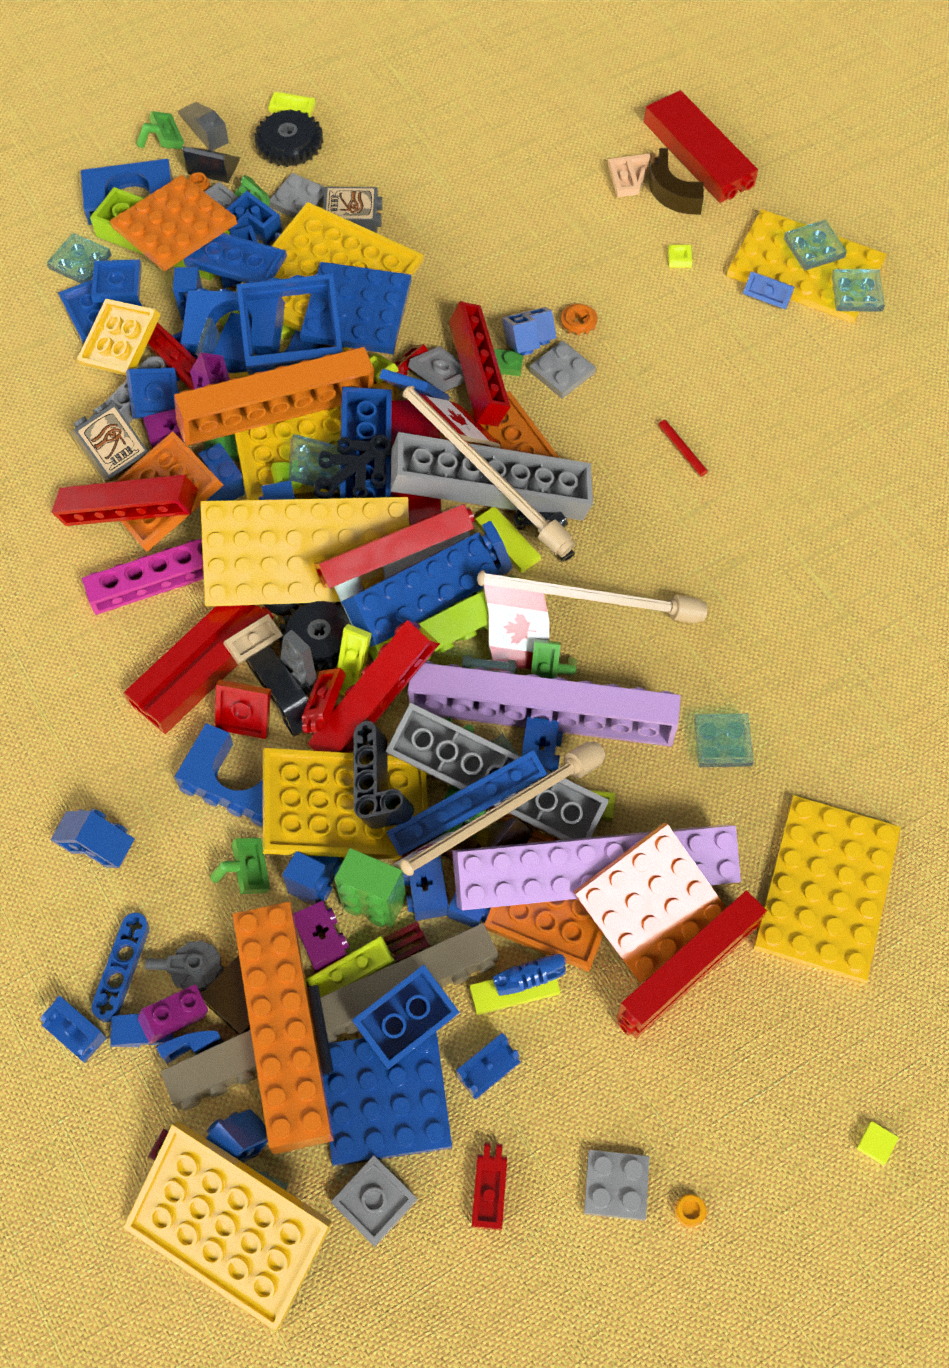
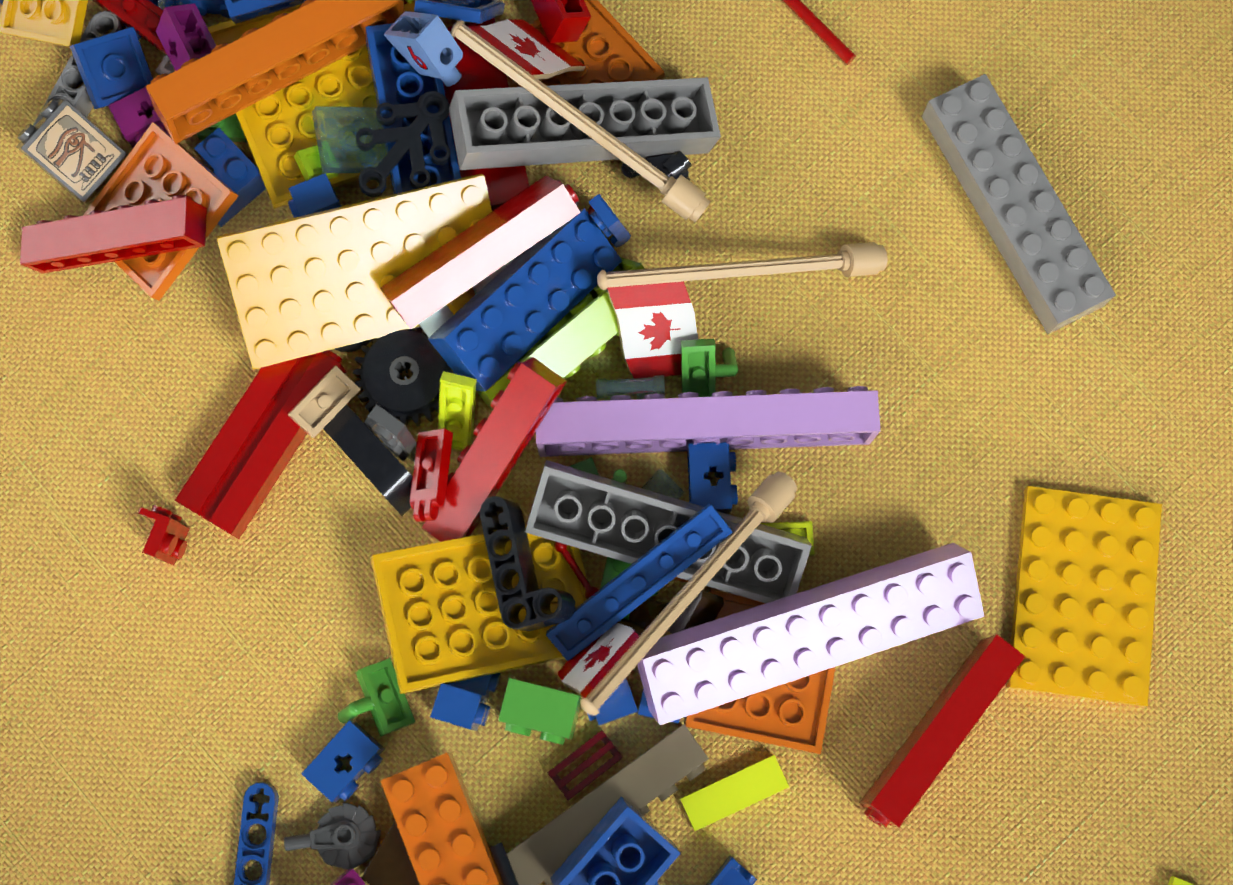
camera: 10 degrees left, 15 degrees up
(94, 836) = (176, 698): blue brick -> none
(110, 715) = (167, 535): none -> red bracket
(150, 581) = (173, 338): dark pink brick -> none
(200, 776) = (296, 587): blue arch -> none
(214, 895) = (325, 769): none -> blue brick
(242, 709) = (330, 496): red plate -> none
(310, 923) = (471, 761): magenta brick -> none
(353, 967) = (535, 806): neon yellow tile -> none
(384, 402) = (426, 45): none -> medium blue torso
(412, 774) = (560, 547): none -> red hinge
(518, 548) = (625, 202): neon yellow tile -> none
(529, 975) = (750, 778): blue hinge -> none
(650, 901) = (883, 666): plate -> none
(723, 740) = (932, 428): clear light blue plate -> none
(816, 591) = (1017, 204): none -> light grey brick

